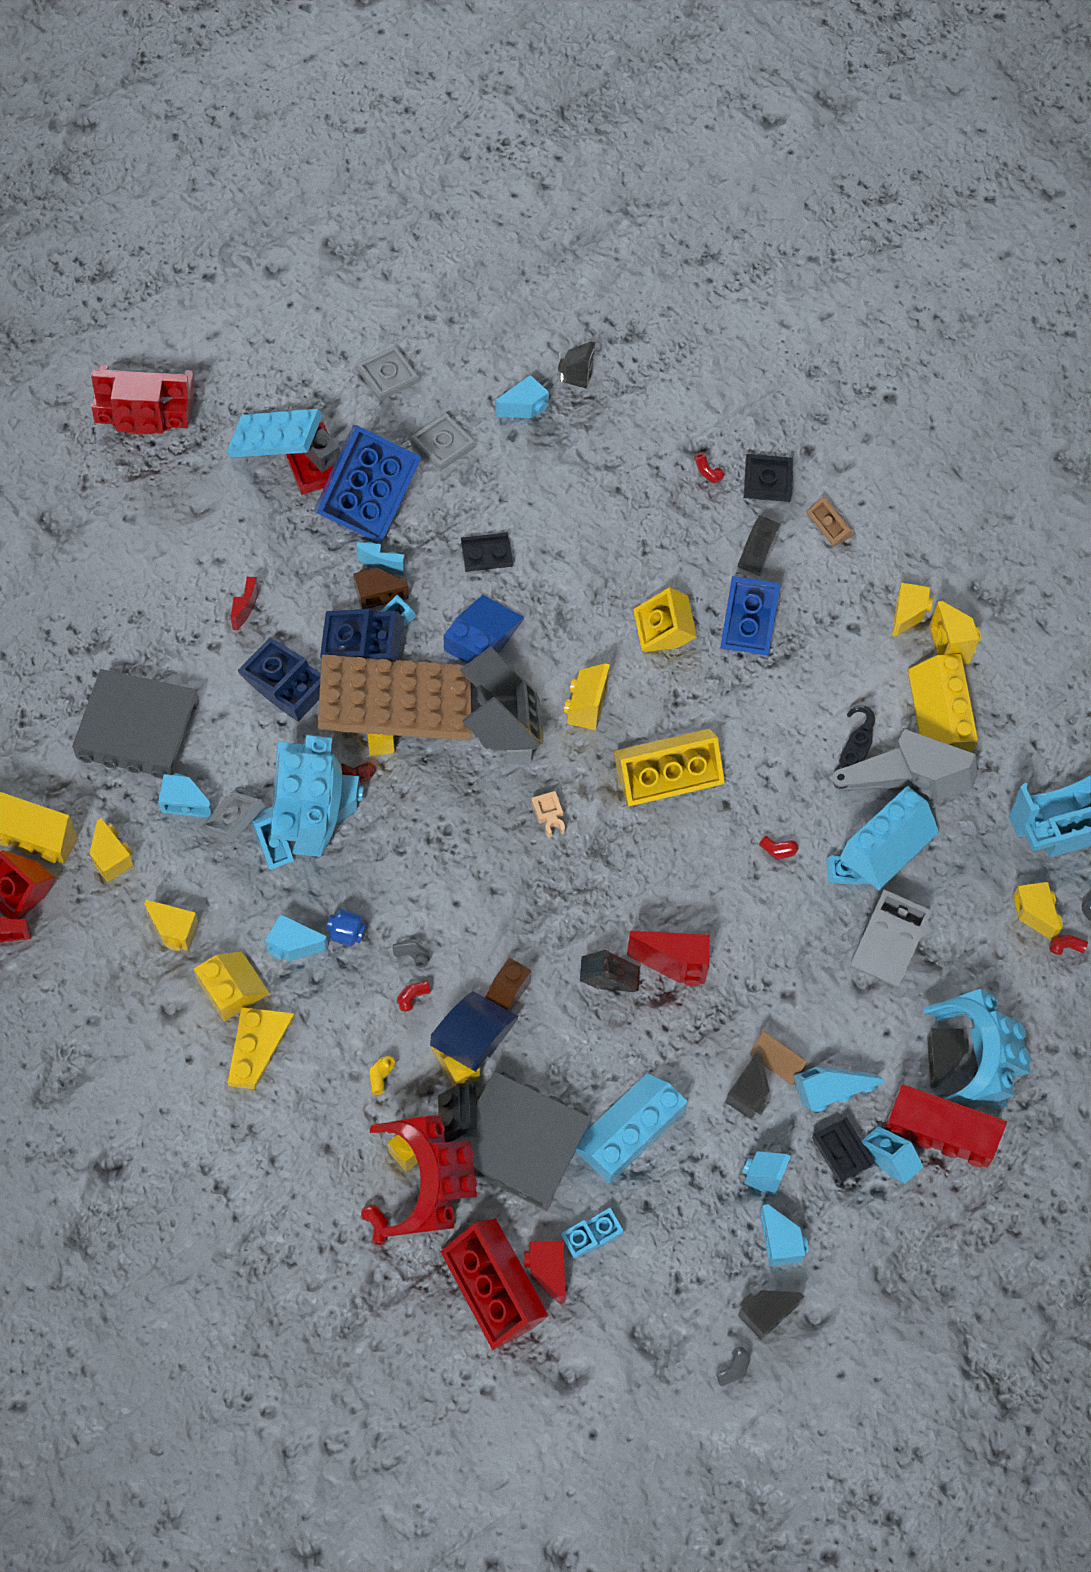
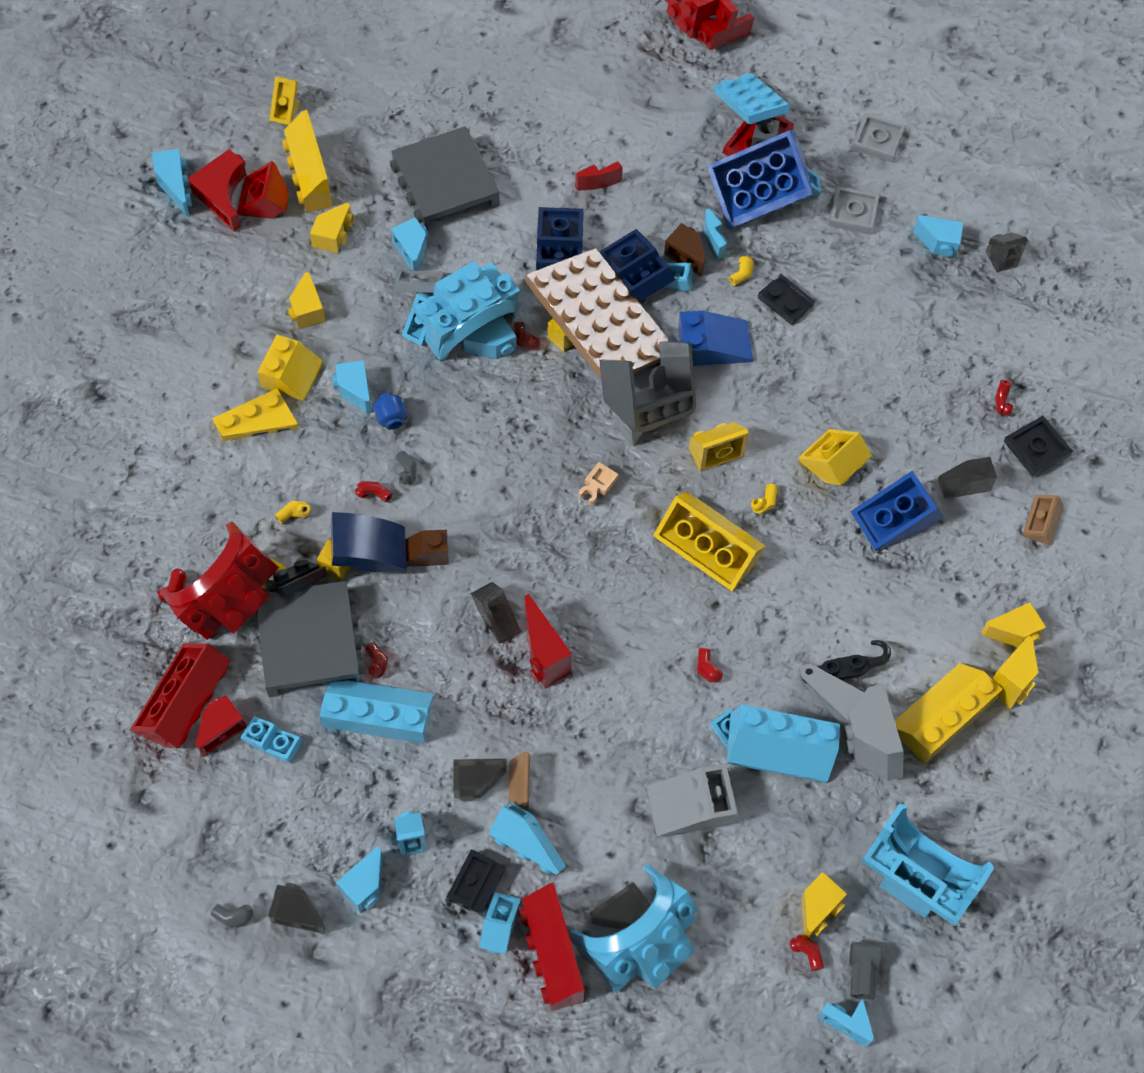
camera: 55 degrees right, 0 degrees up
(436, 563) = (745, 270): none -> yellow arm
(584, 1097) = (379, 662): none -> clear red arm
(665, 702) = (767, 502): none -> yellow arm

